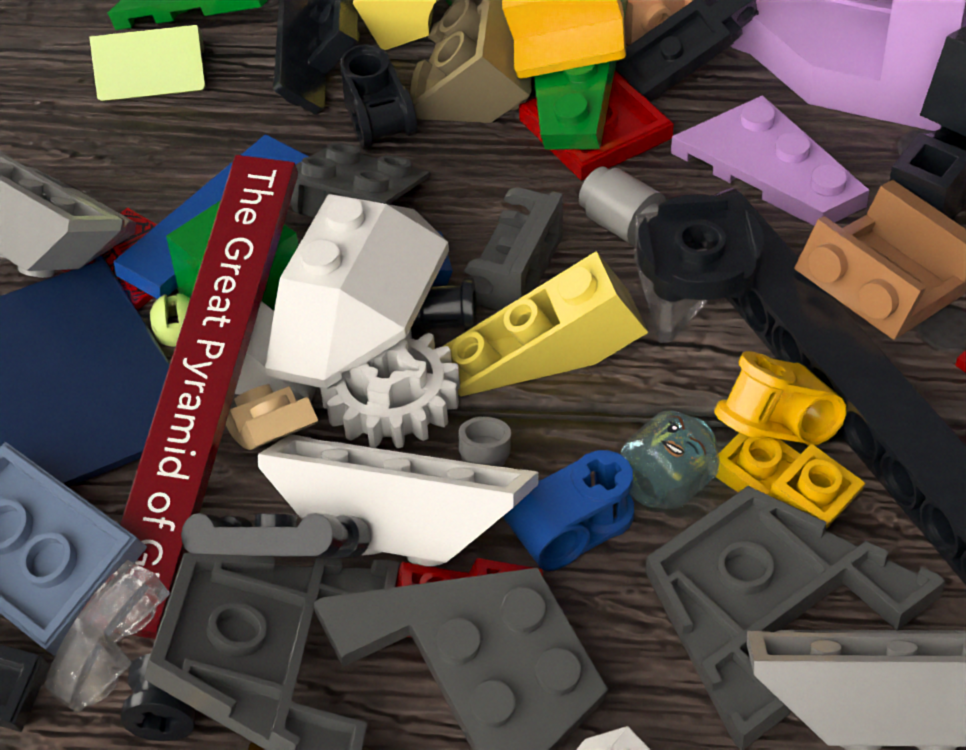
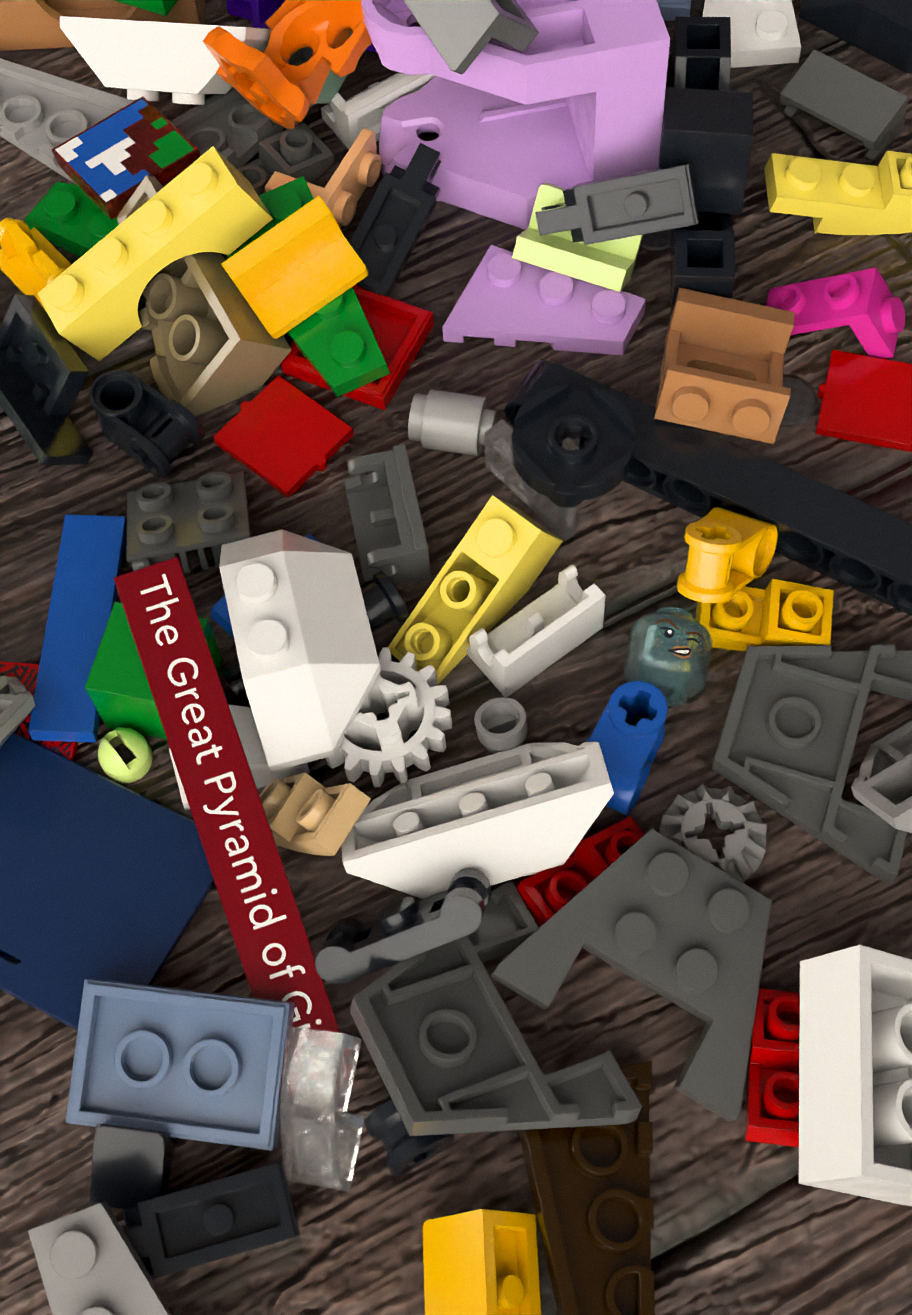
camera: 30 degrees left, 15 degrees up
(482, 161) = (283, 436): none -> red piece
(574, 395) = (538, 633): none -> white hinge
(622, 644) = (740, 851): none -> light grey gear
(843, 118) = (600, 263): none -> yellowish green panel
(888, 95) = (625, 205): none -> hinge

